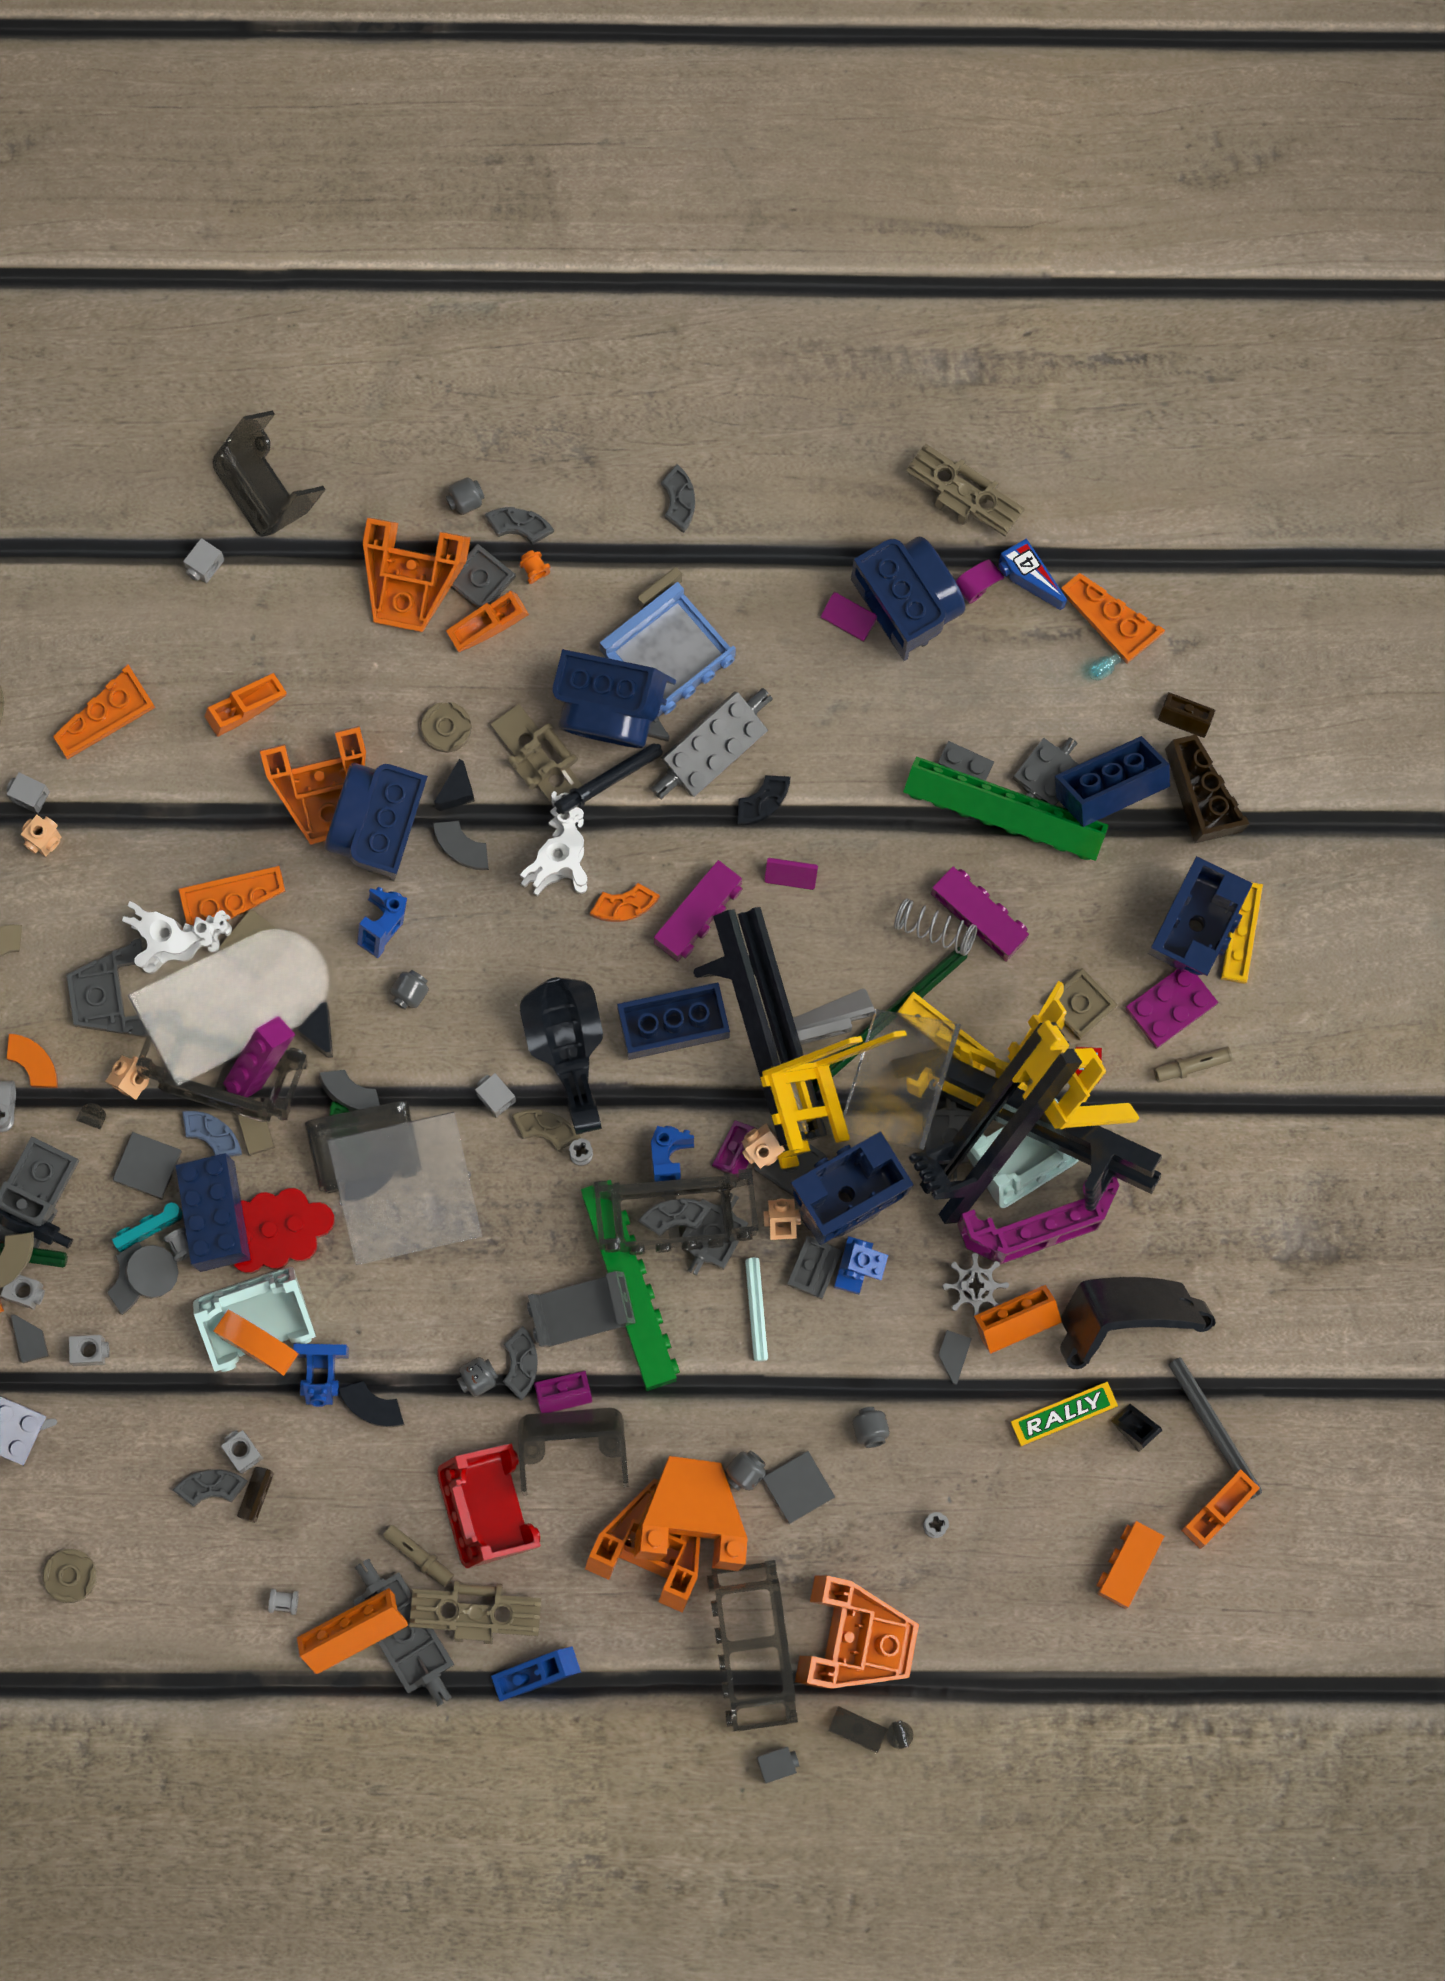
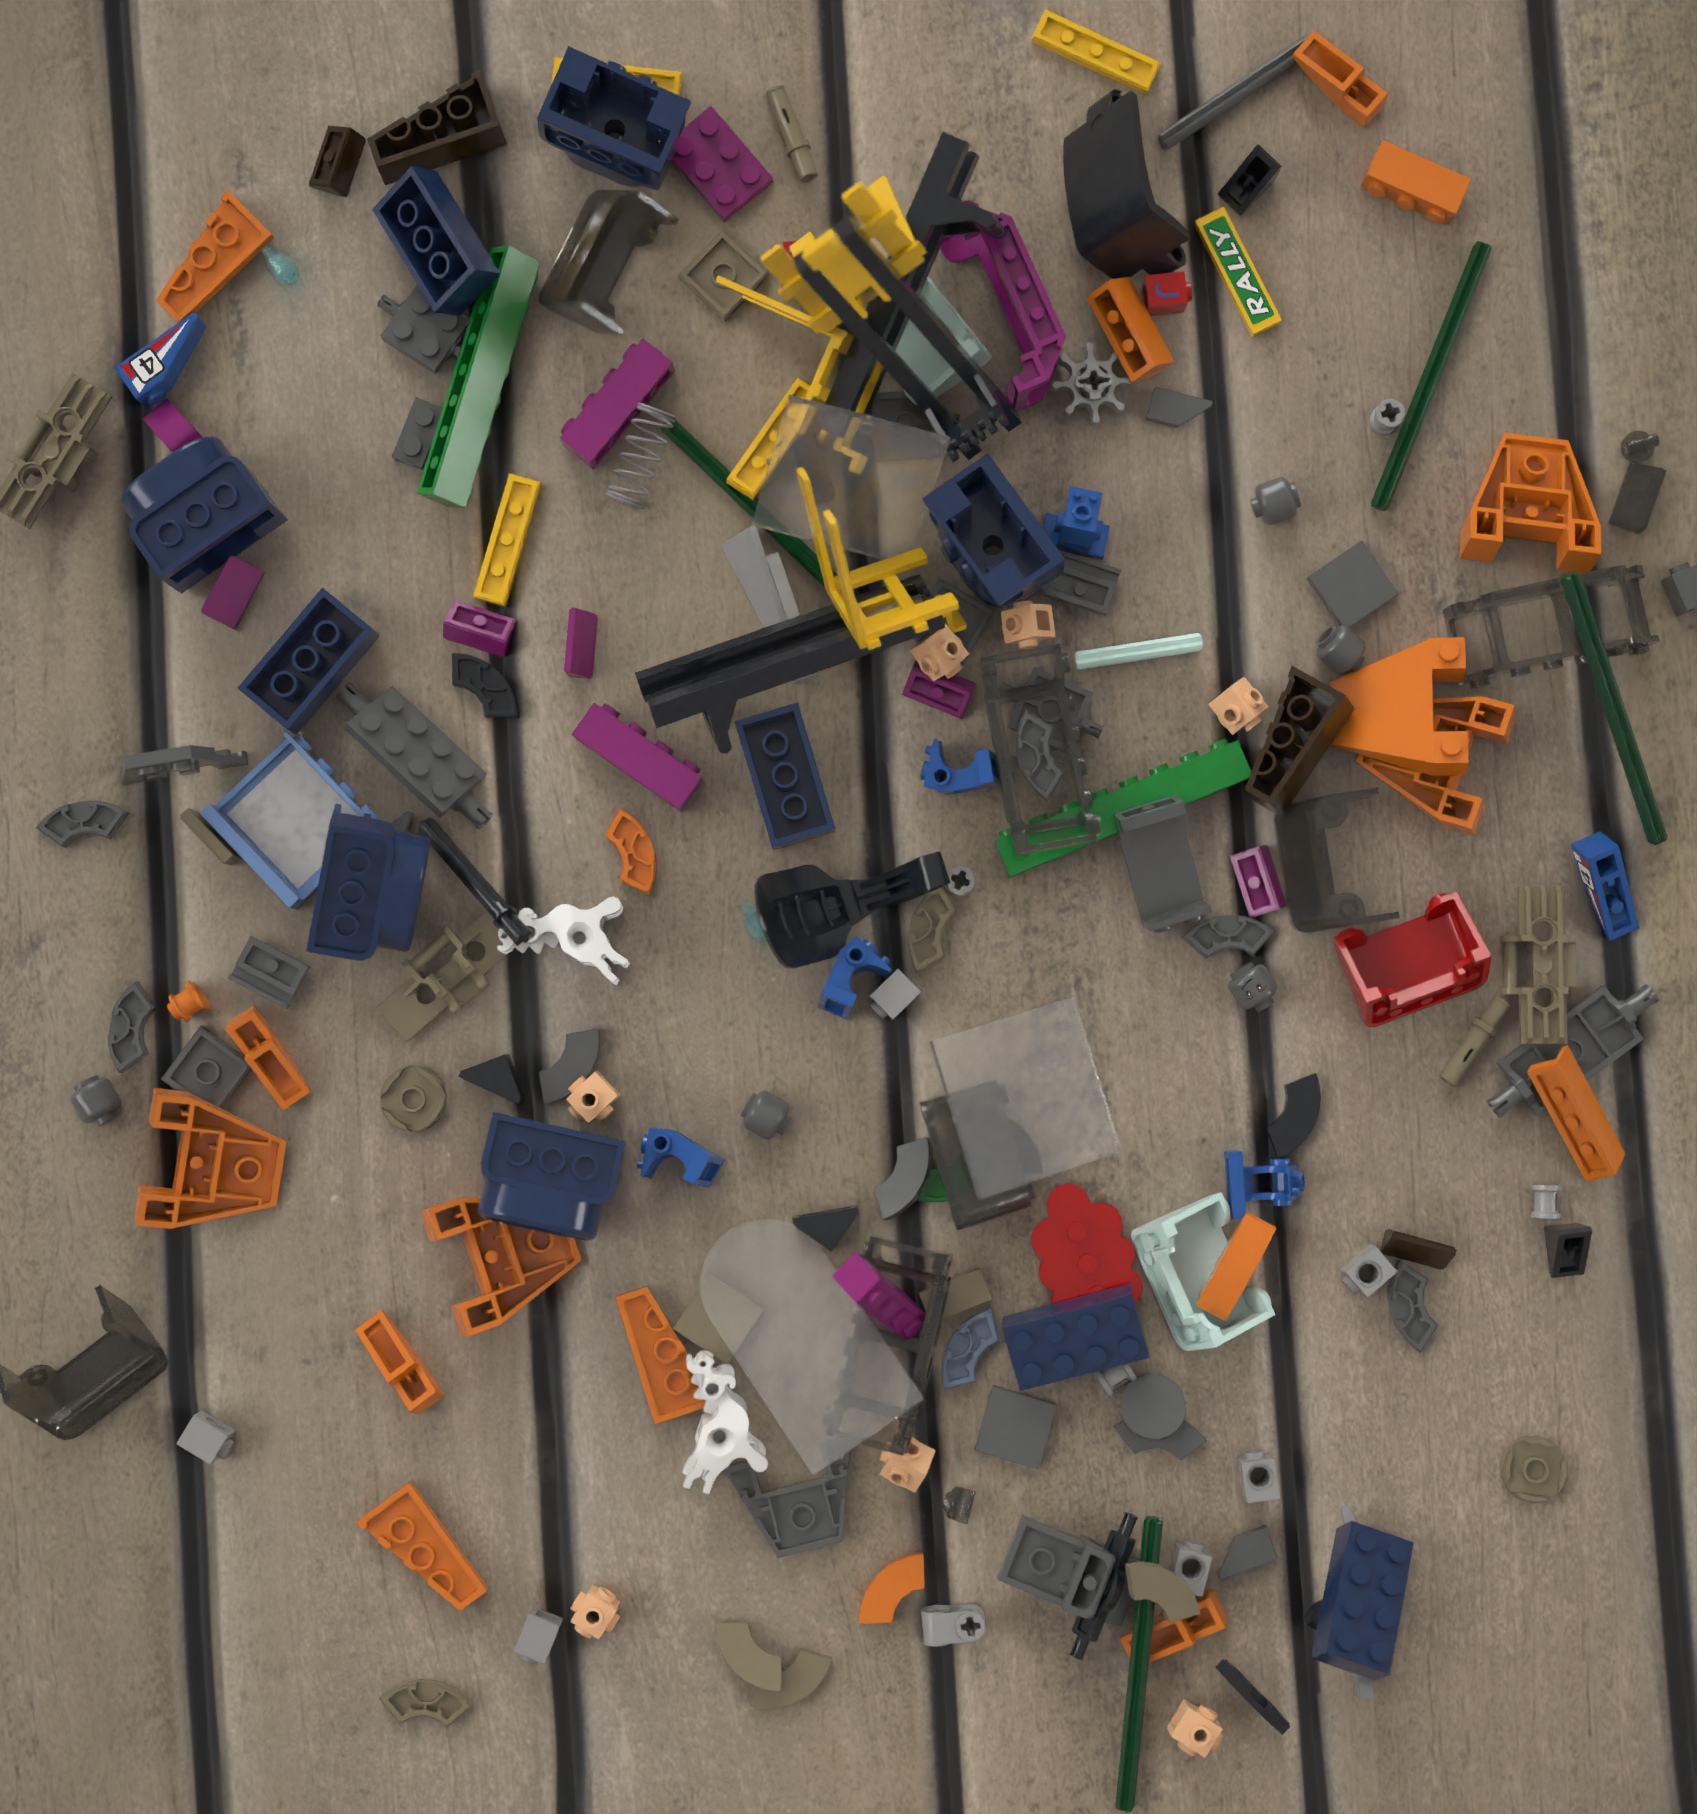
camera: 90 degrees left, 10 degrees up
(148, 1227) = (1095, 1417): teal plate -> none
(243, 1615) = (1567, 1248): none -> black slope
(436, 866) = (604, 1096): none -> light nougat brick
(503, 1048) = (837, 994): none -> blue tile
(552, 626) = (269, 972): none -> dark grey plate
(671, 1424) = (1297, 739): none -> dark brown wedge
(678, 1682) = (1613, 707): none -> dark green axle
(704, 1383) = (1239, 706): none -> light nougat brick
(715, 569) = (185, 759): none -> dark grey wing
(789, 668) = (308, 661): none -> dark blue brick
(809, 798) = (478, 628): none -> magenta slope
(877, 824) = (507, 540): none -> yellow tile
(969, 1567) = (1431, 376): none -> dark green axle
(1047, 1352) = (1166, 293): none -> red brick
(1095, 904) = (597, 253): none -> clear smoke windscreen
(1252, 1313) = (1095, 52): none -> yellow tile

